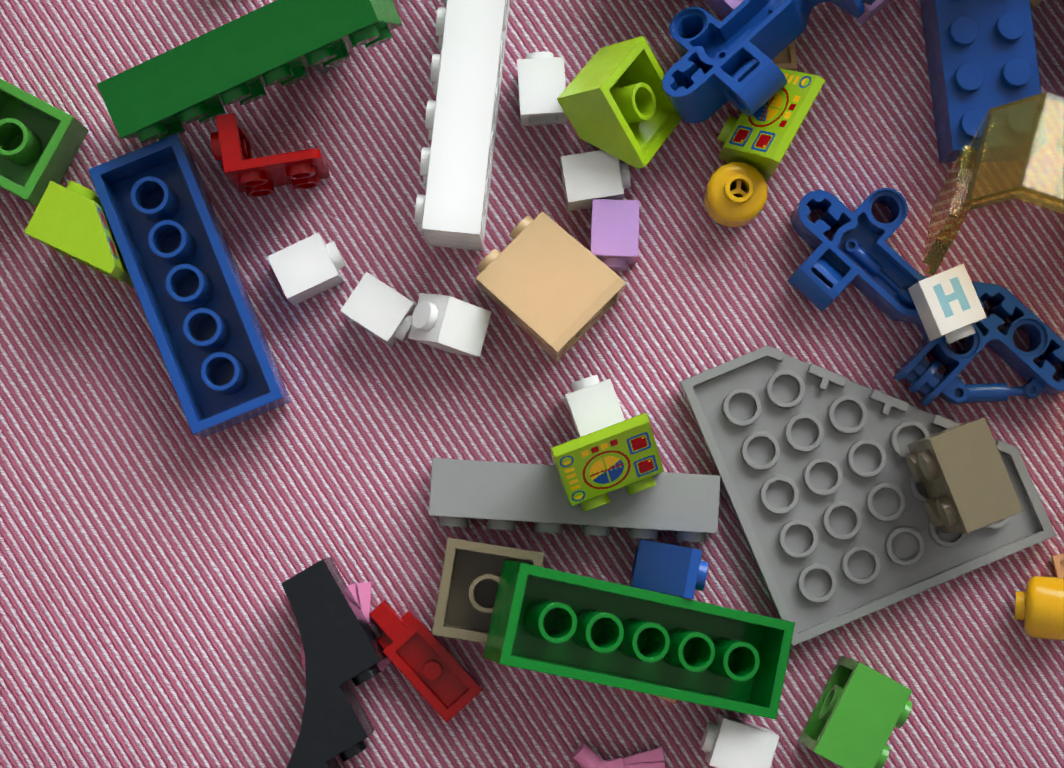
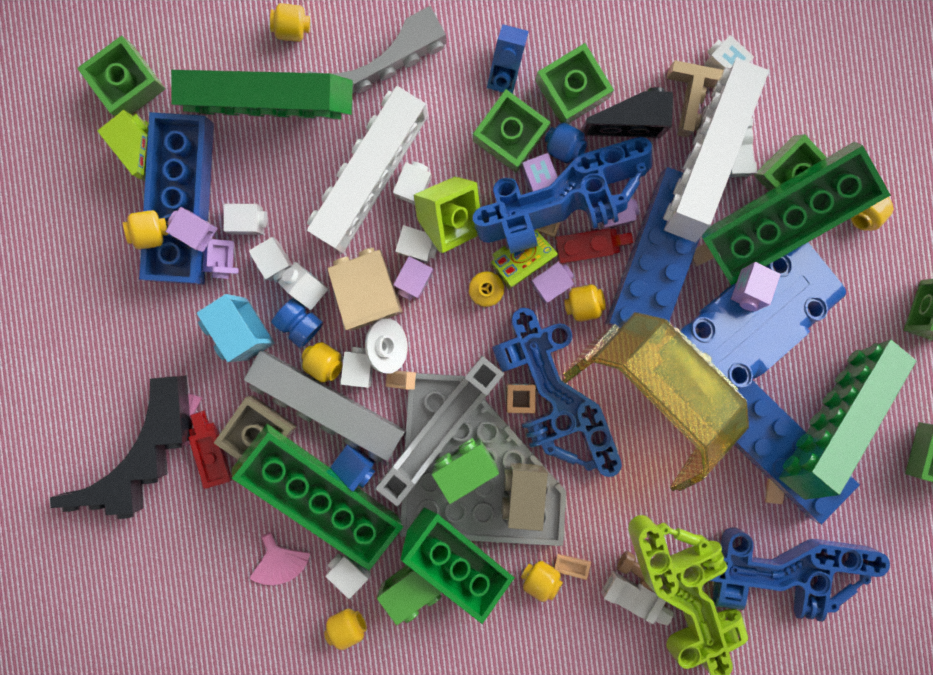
camera: 25 degrees right, 5 degrees up
(170, 348) = (145, 229): none -> yellow head
(240, 313) = (190, 229): none -> lavender brick
(262, 174) = (232, 144): red bracket -> none
(296, 347) = (219, 258): none -> lavender bracket
(384, 435) = (234, 328): none -> medium azure piece
(467, 387) = (293, 319): none -> blue wheel
(534, 429) = (322, 362): none -> yellow head
(608, 461) = (344, 398): lime slope -> none
(624, 355) = (386, 345): none -> white dish
(671, 398) = (401, 380): none -> light nougat piece
(772, 451) = (439, 430): none -> light grey arch
(831, 136) = (553, 282): none -> lavender brick
(849, 481) = (464, 470): none -> bright green brick
(861, 52) = (590, 245): none -> red hinge
(873, 334) = (520, 398): none -> medium nougat brick
(897, 142) = (585, 303): none -> yellow head
(908, 638) = (454, 565): none -> green slope
(948, 304) = (564, 403): white brick -> none

